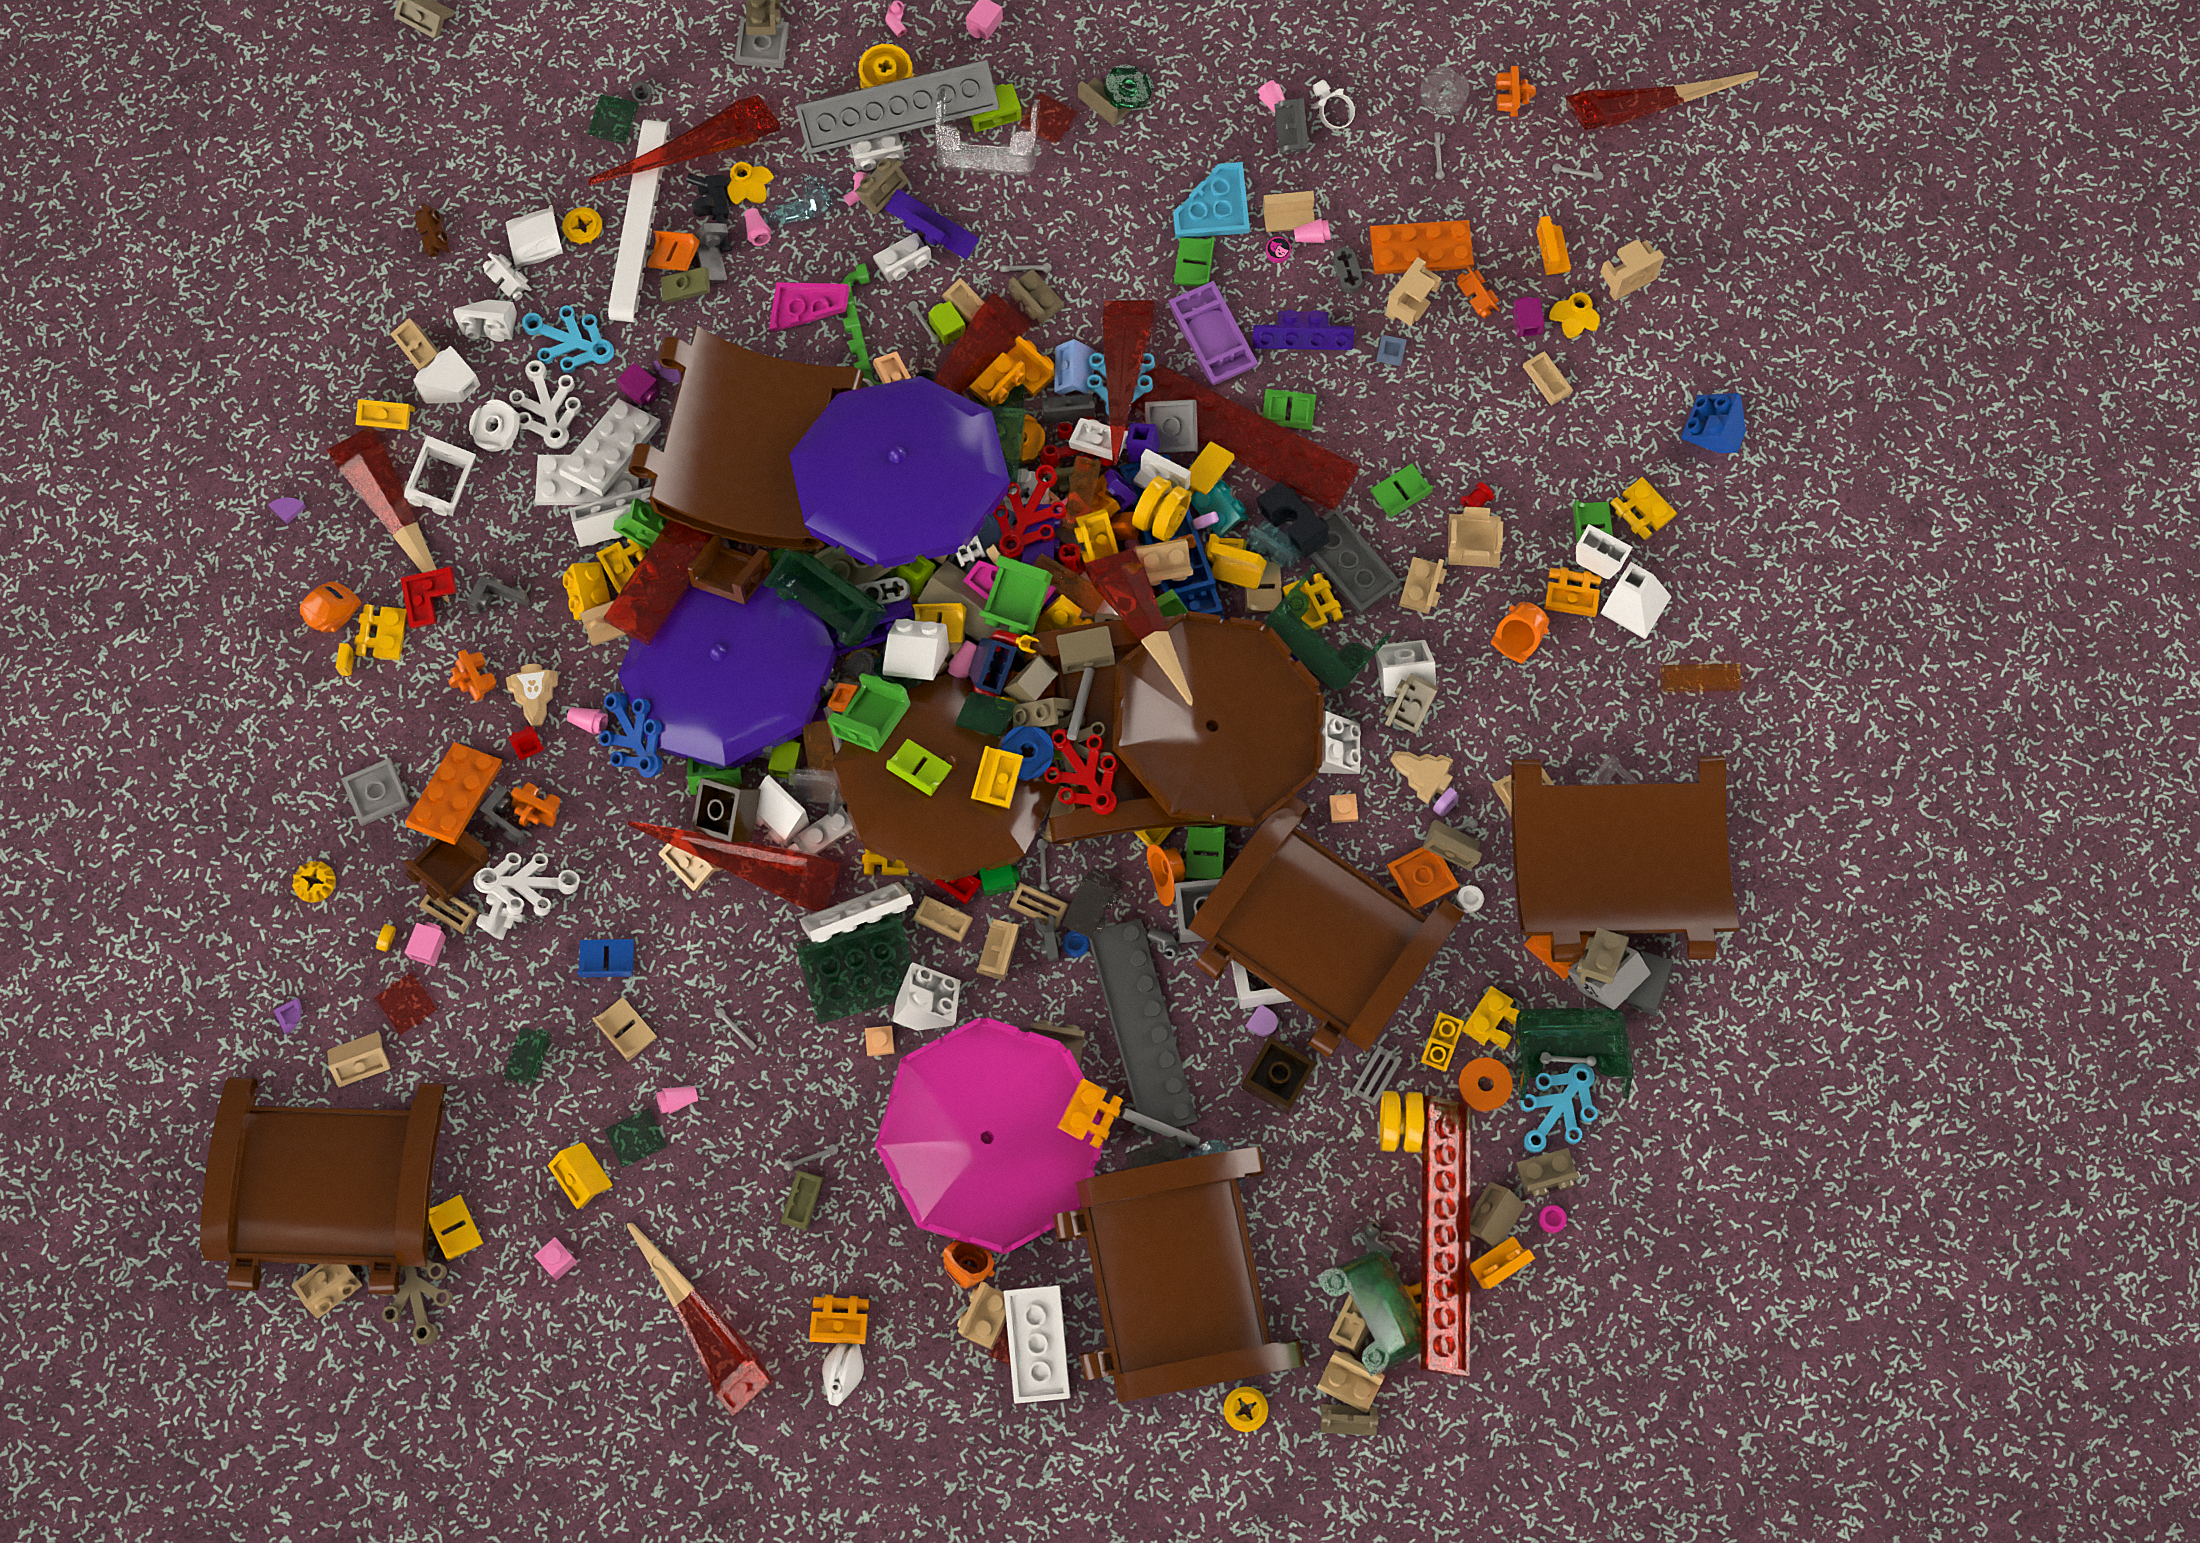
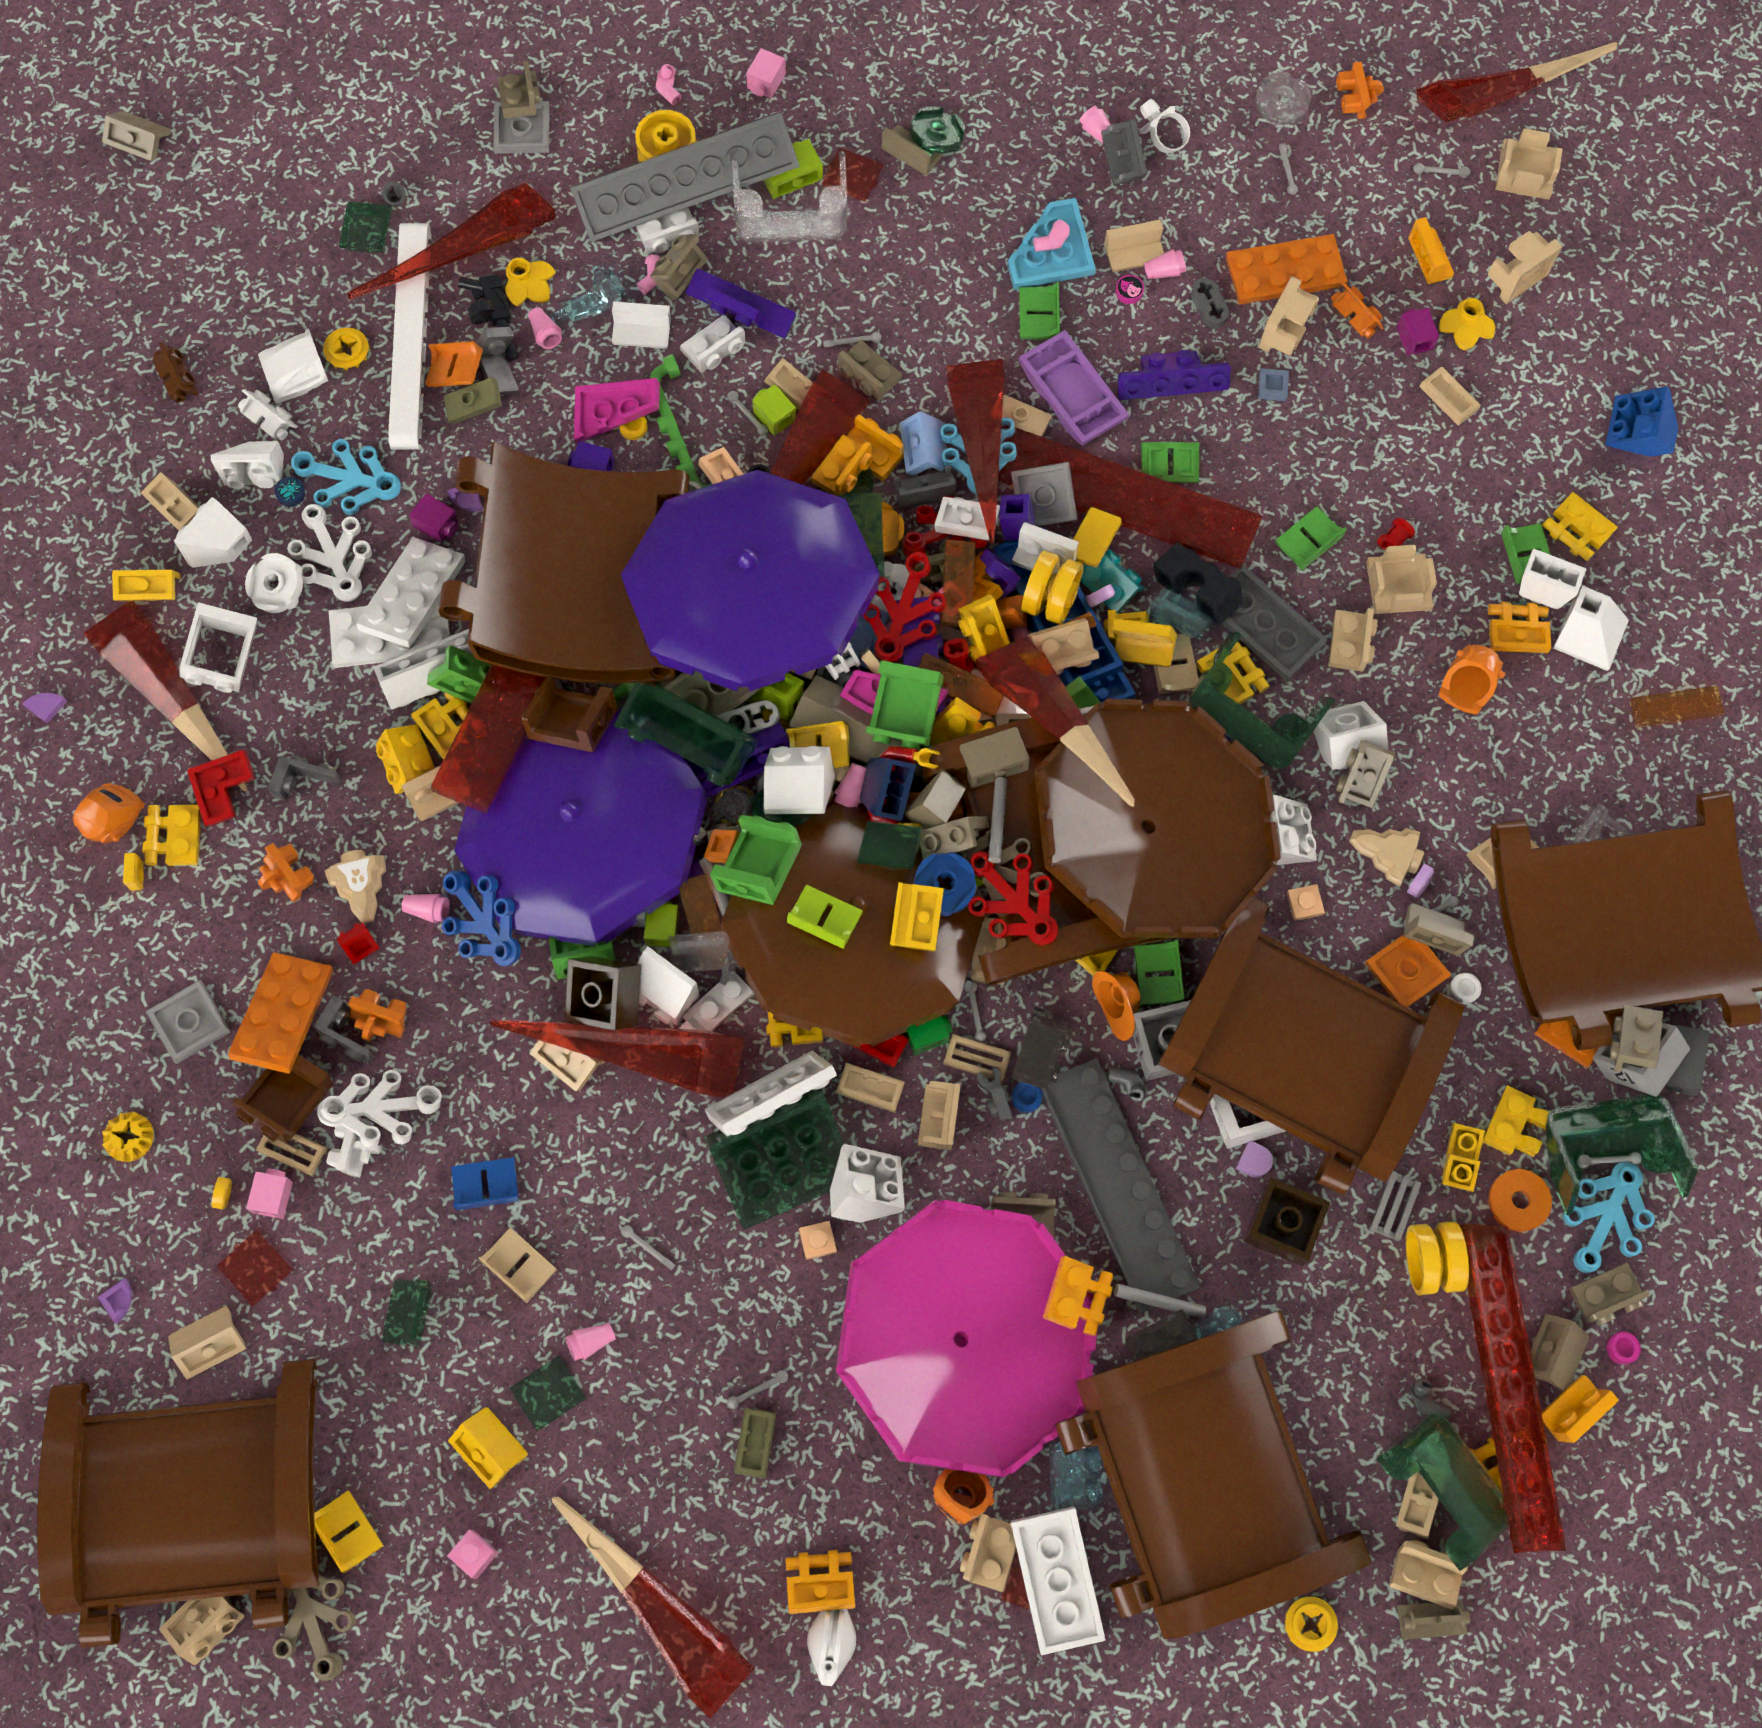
camera: 10 degrees left, 0 degrees up
(518, 347) = (290, 491): none -> tile
(781, 347) = (591, 457): none -> dark purple brick
(823, 326) = (635, 429): none -> yellow tile
(841, 234) = (641, 324): none -> white panel
(1066, 1264) = (1075, 1478): none -> clear light blue bracket
(1167, 354) = (1026, 416): none -> tan plate
(1217, 197) = (1055, 238): none -> bright pink arm
(1655, 177) = (1528, 165): none -> tan panel

